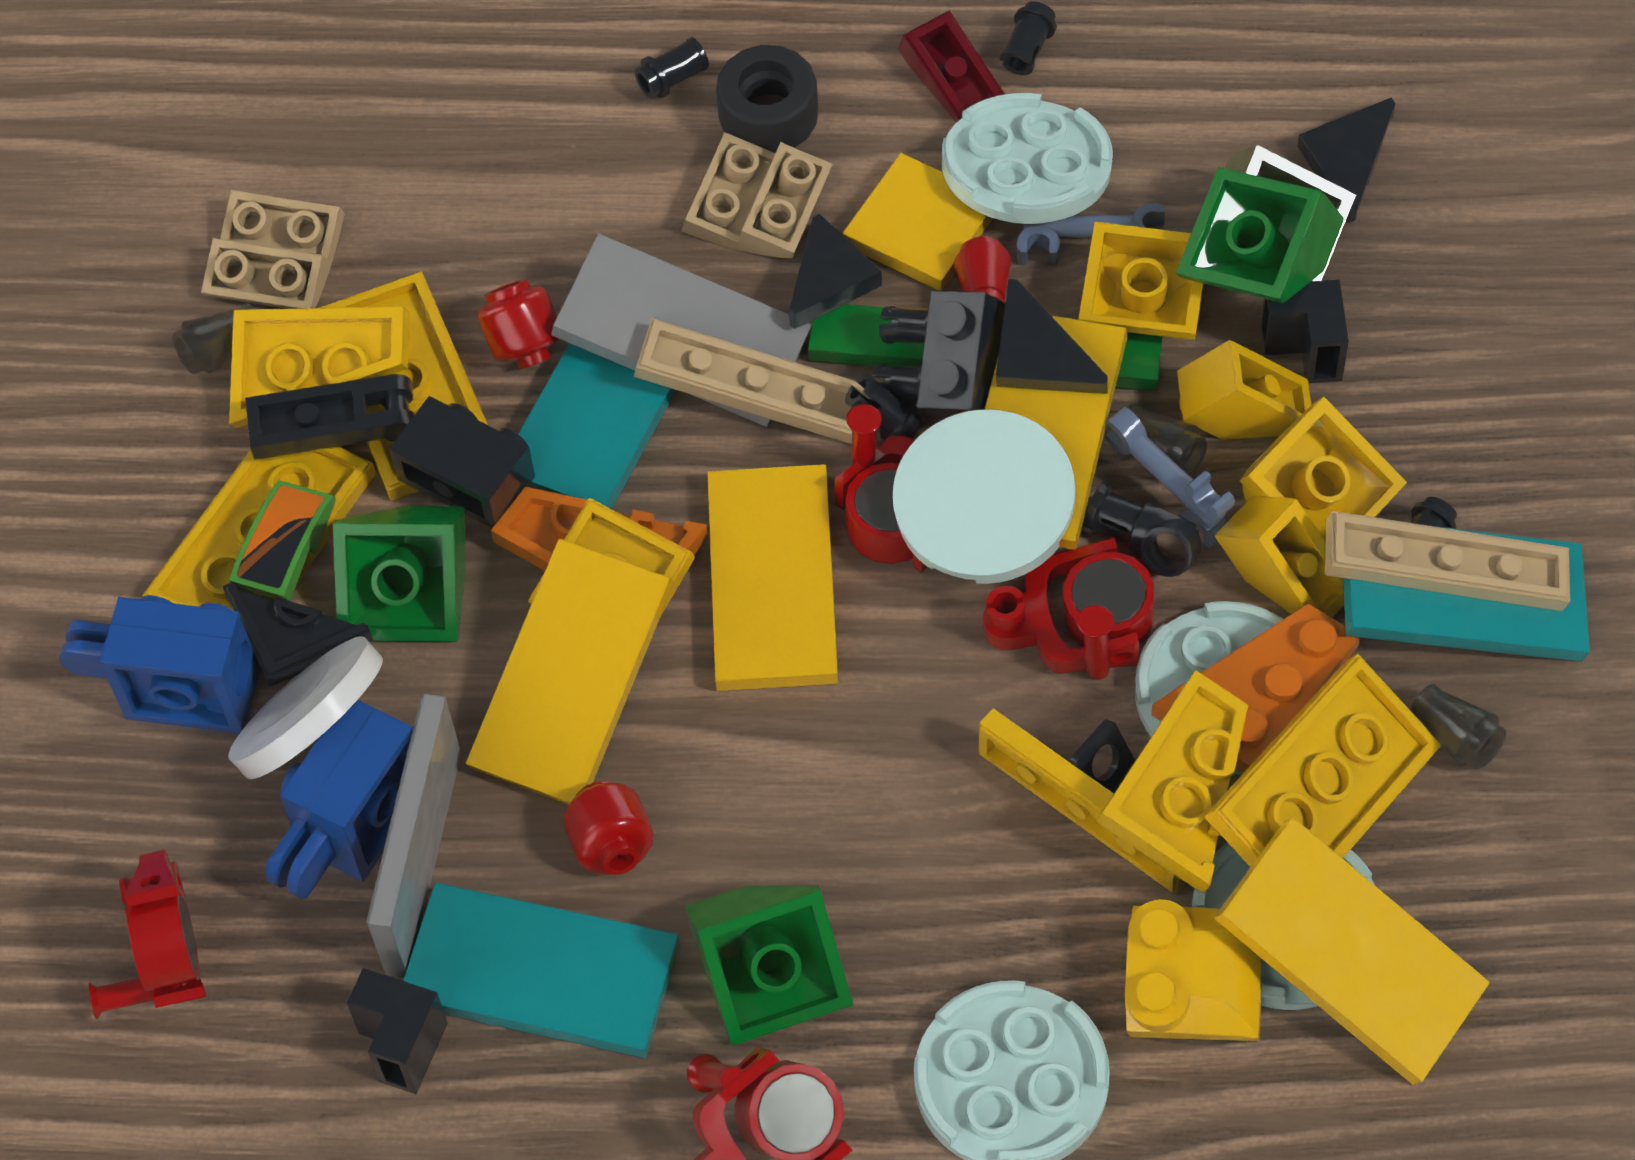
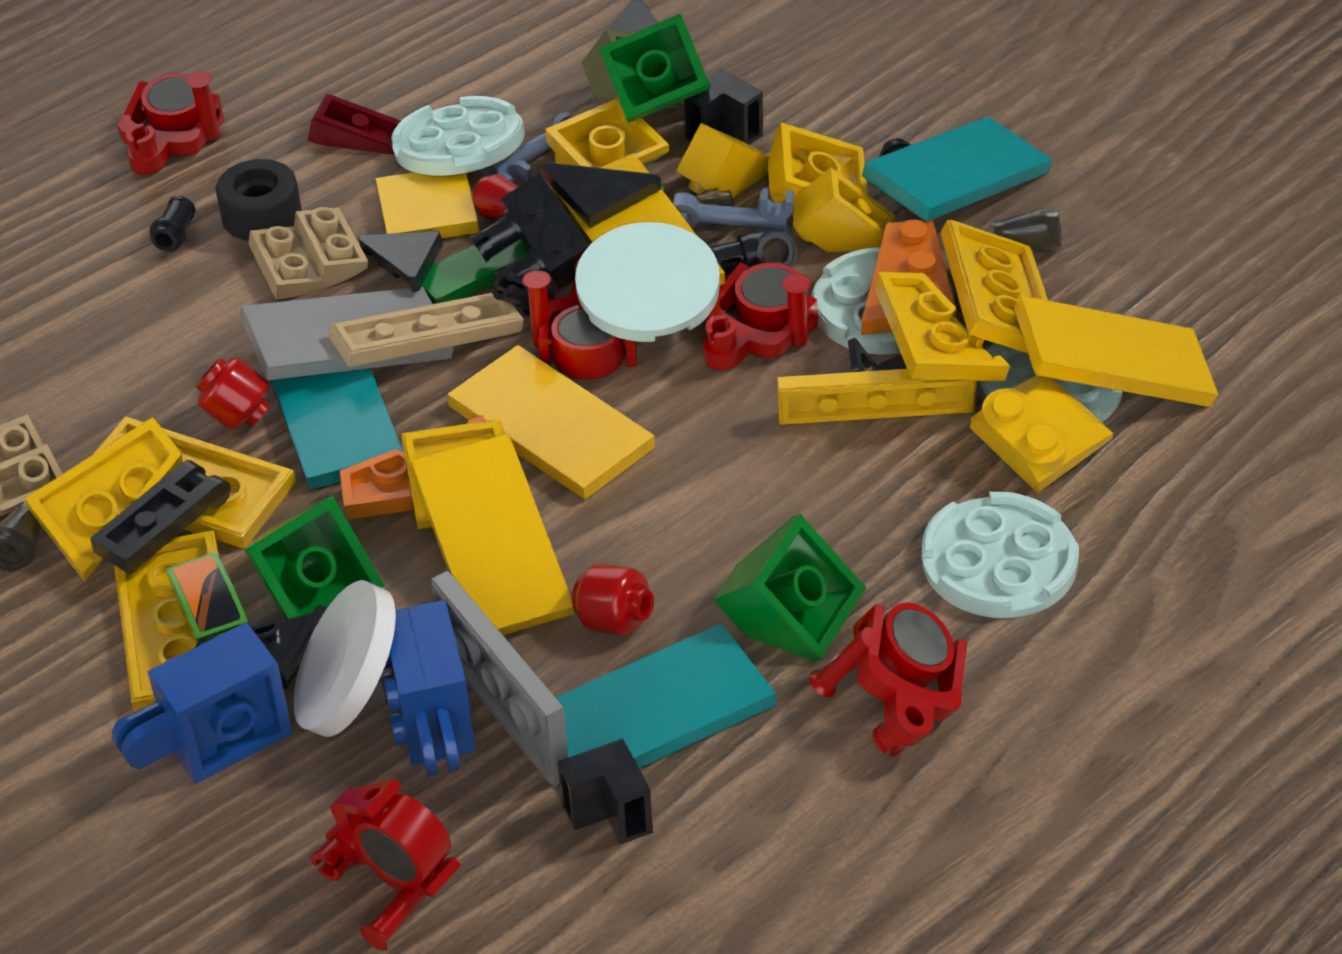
camera: 45 degrees left, 15 degrees down
(462, 460) = (284, 476): black brick -> none
(1033, 26) = (383, 79): black pin -> none
(1447, 561) = (938, 152): tan tile -> none

